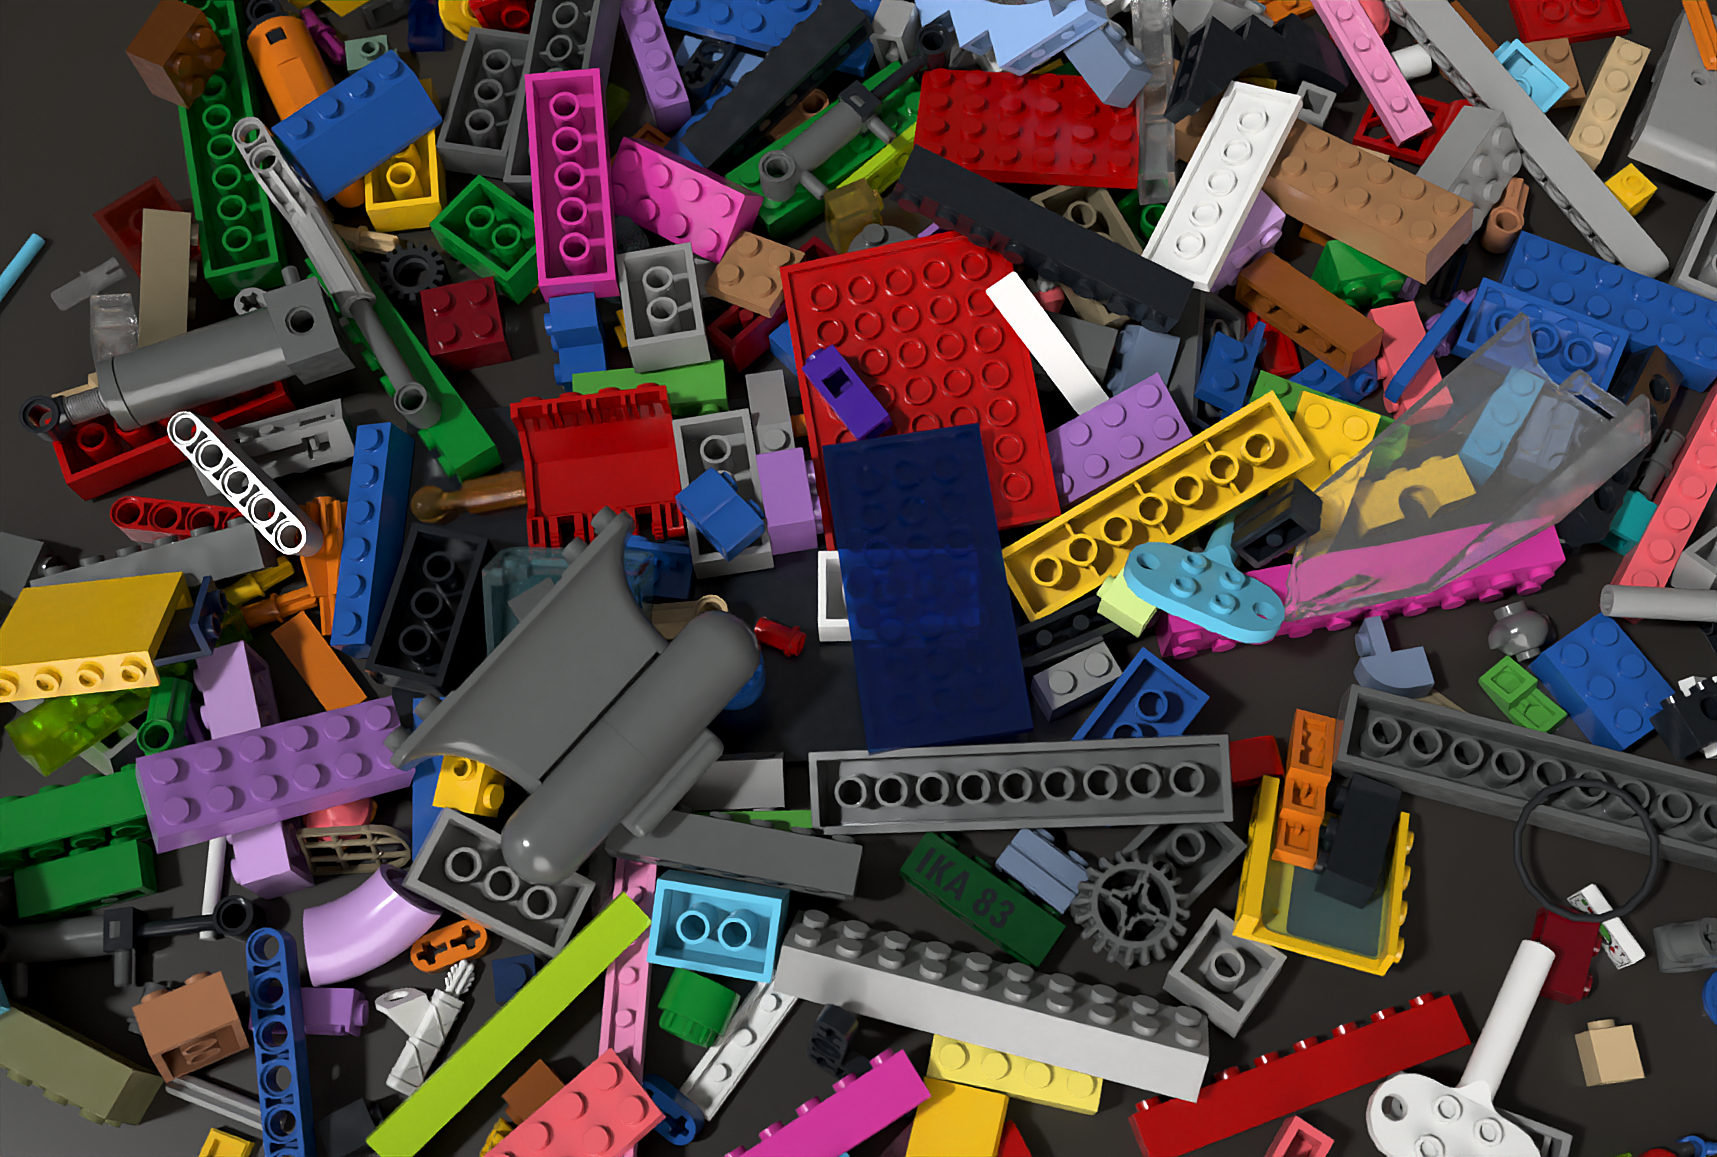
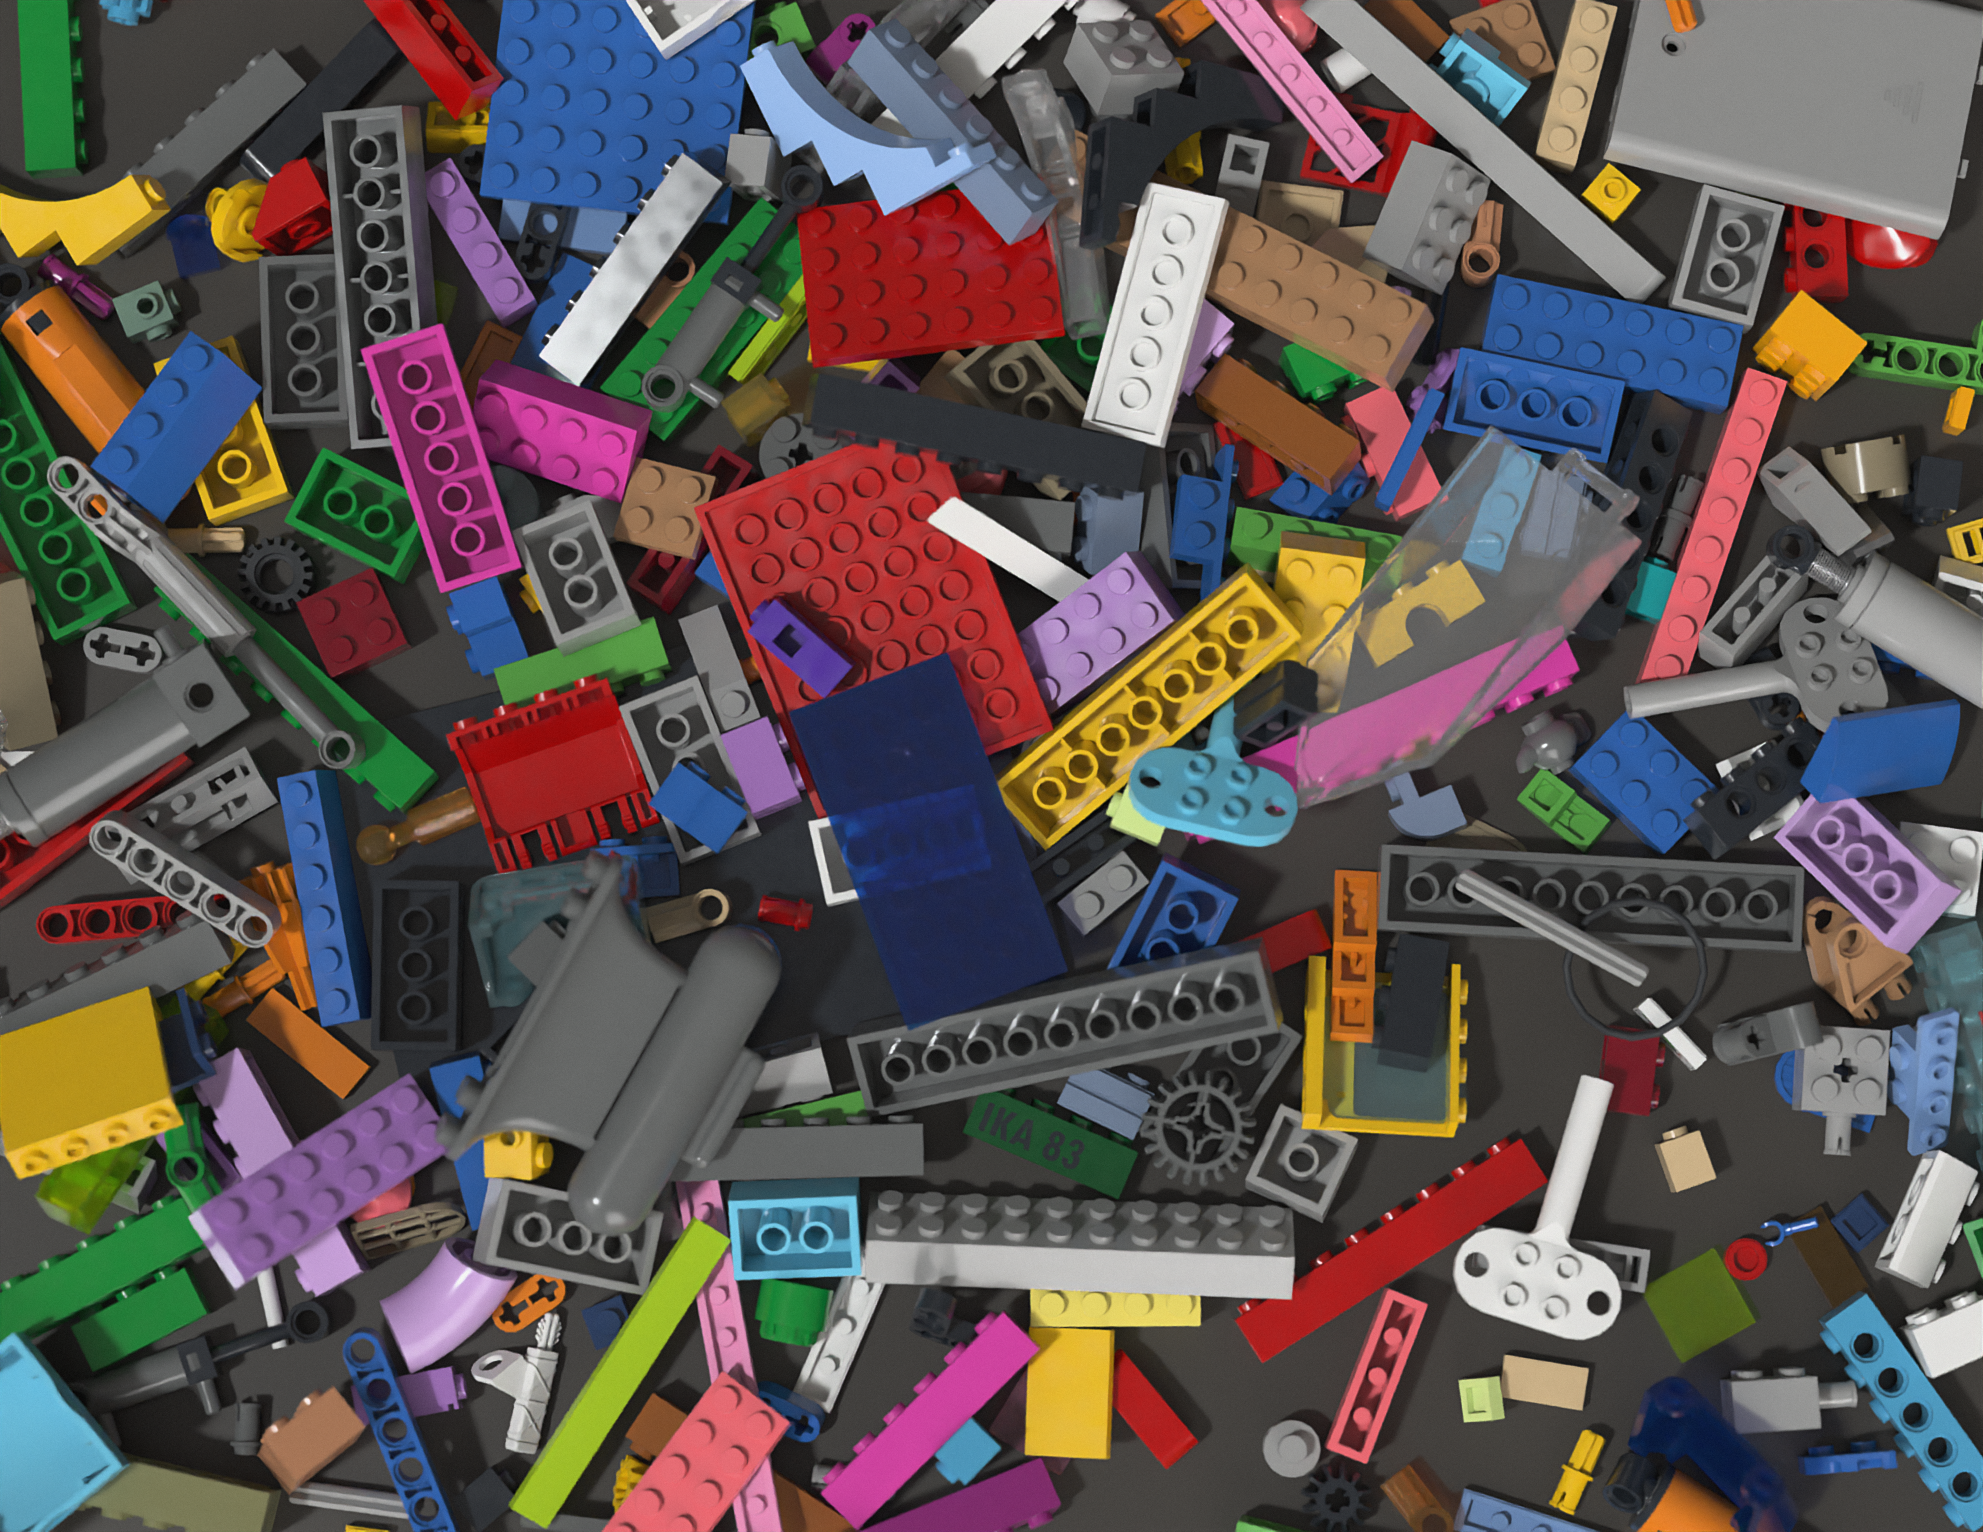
camera: 15 degrees left, 15 degrees up
(1512, 791) = (1552, 927): none -> light grey axle

